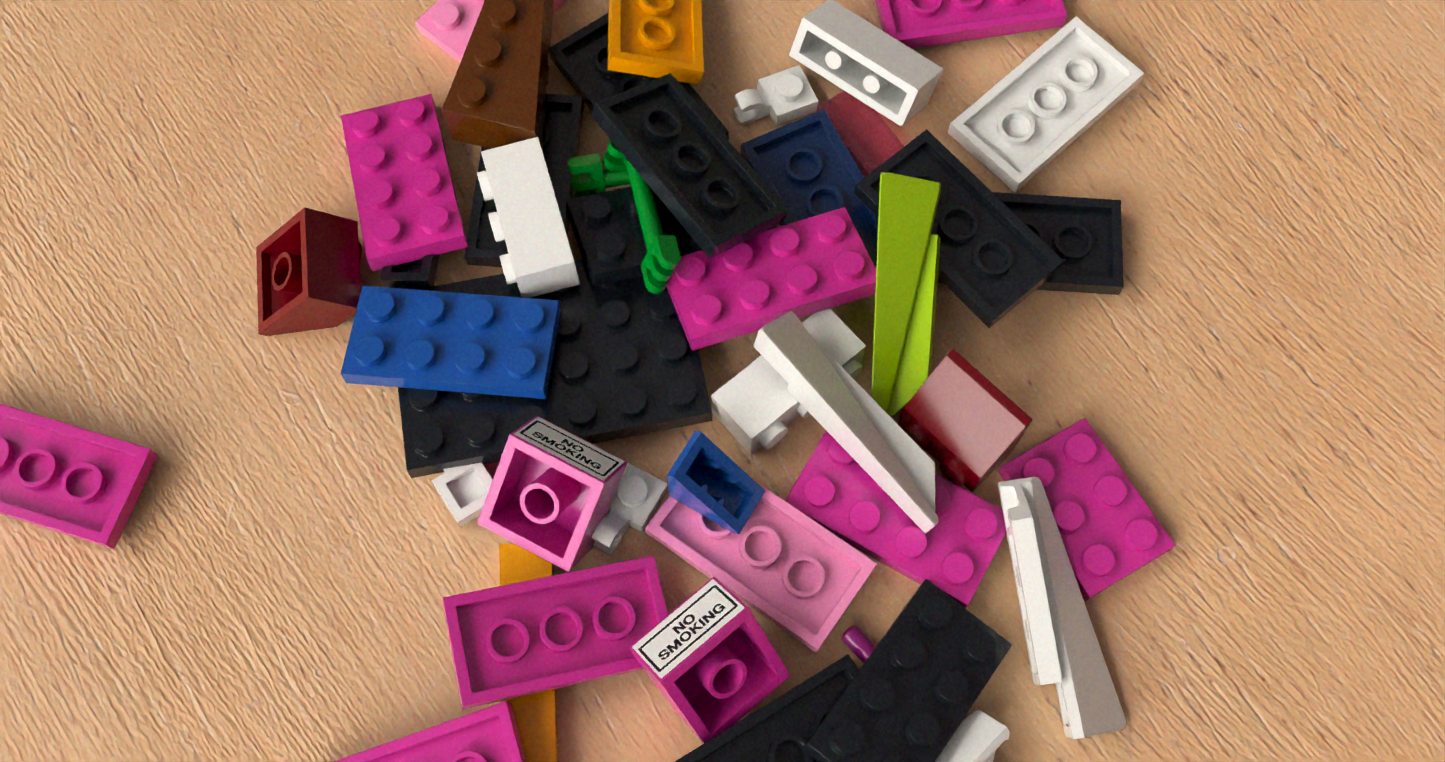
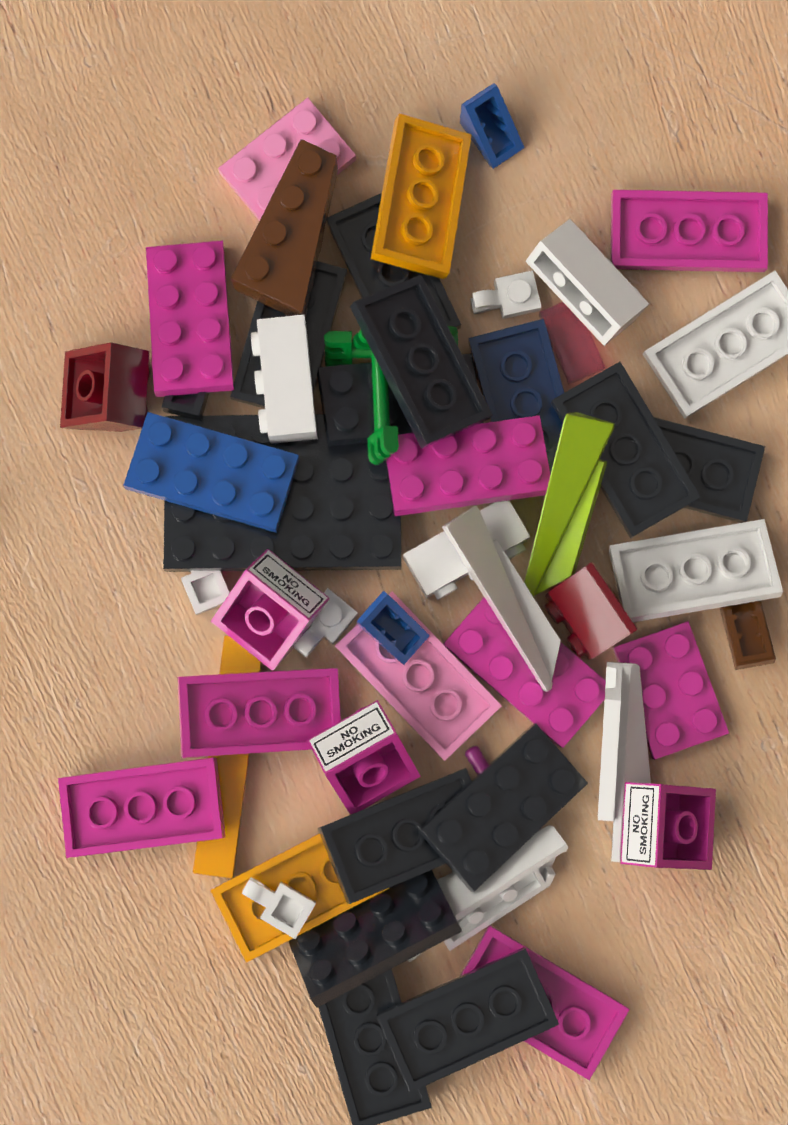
camera: 10 degrees right, 15 degrees up
(1082, 352) = (695, 571): none -> white plate
(1136, 674) = (668, 826): none -> dark pink brick
(1159, 412) = (748, 635): none -> reddish brown plate

